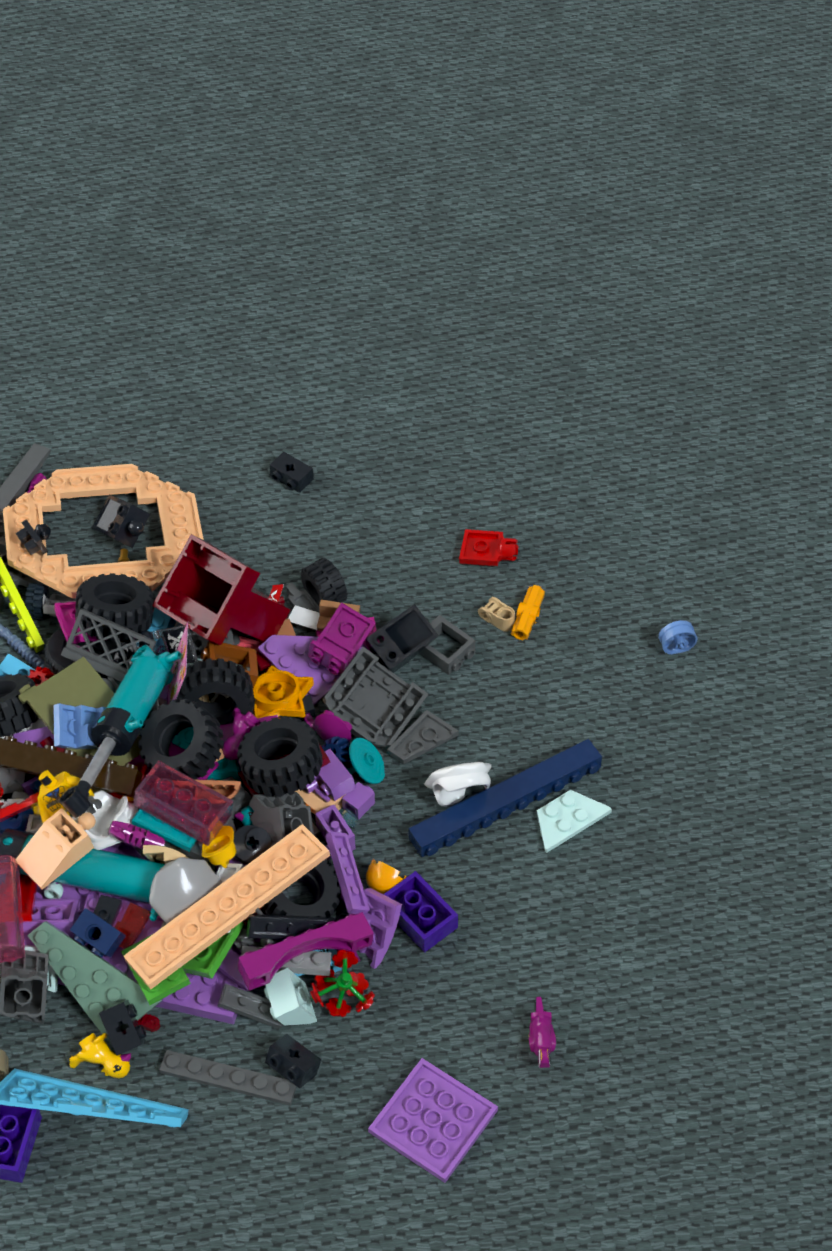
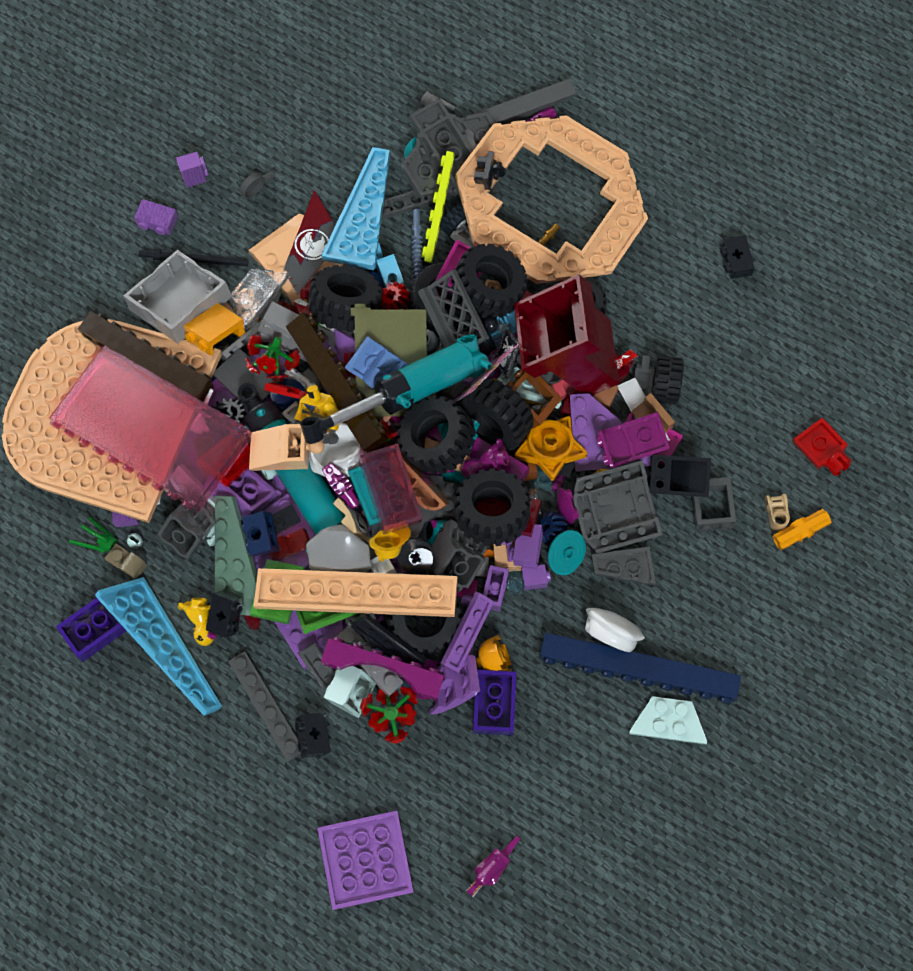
camera: 45 degrees right, 20 degrees up
(121, 521) = (571, 201): black slope -> none
(677, 637) = (892, 651): medium blue wheel -> none

